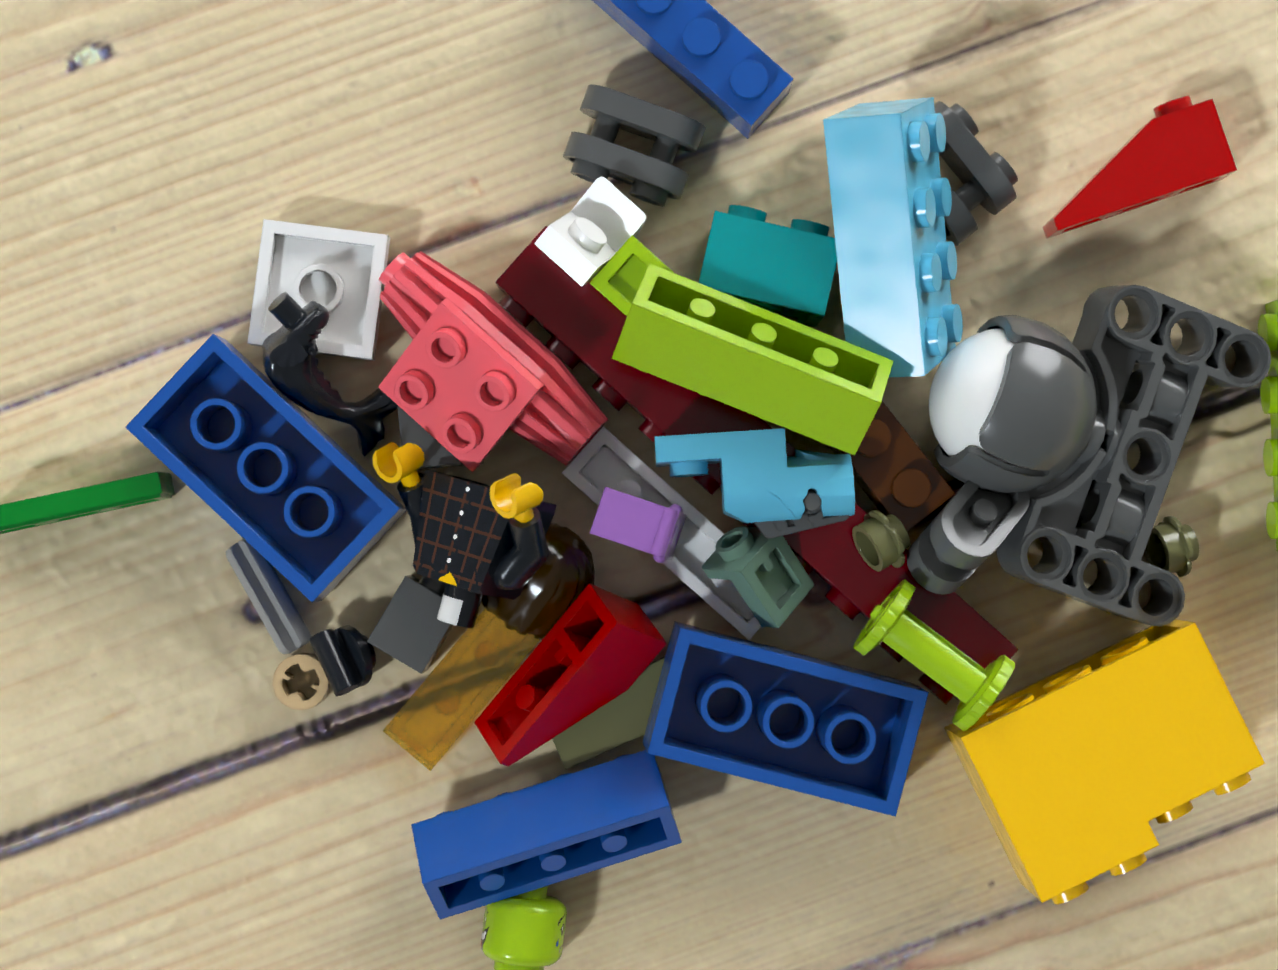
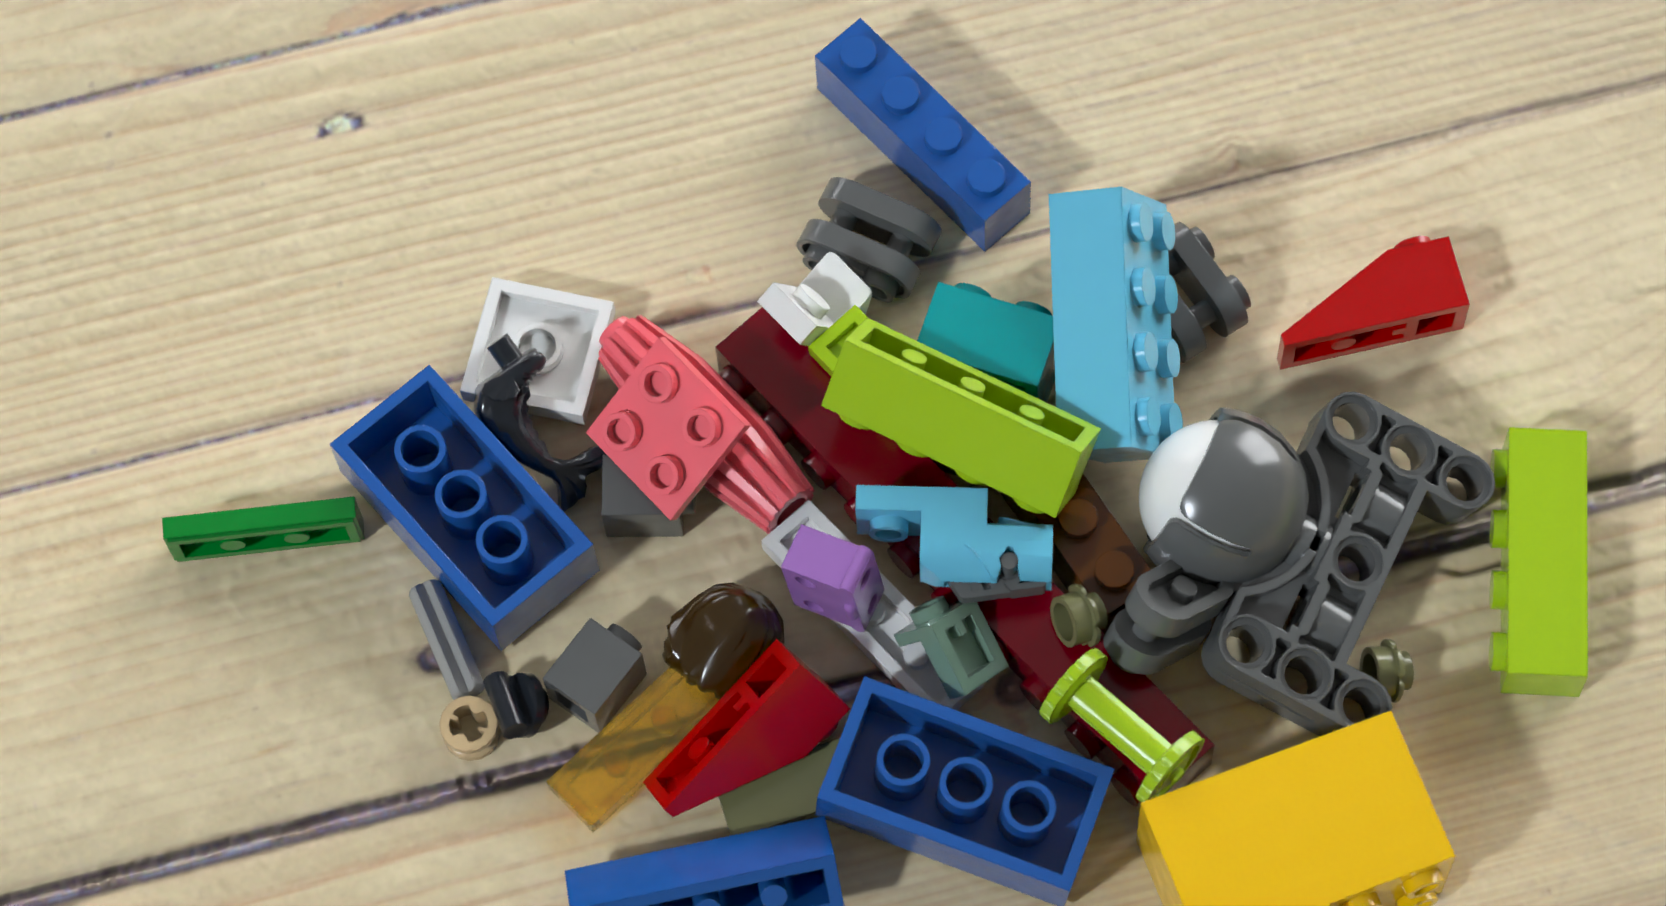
camera: 10 degrees right, 20 degrees down
(469, 531) = (663, 572): black torso -> none

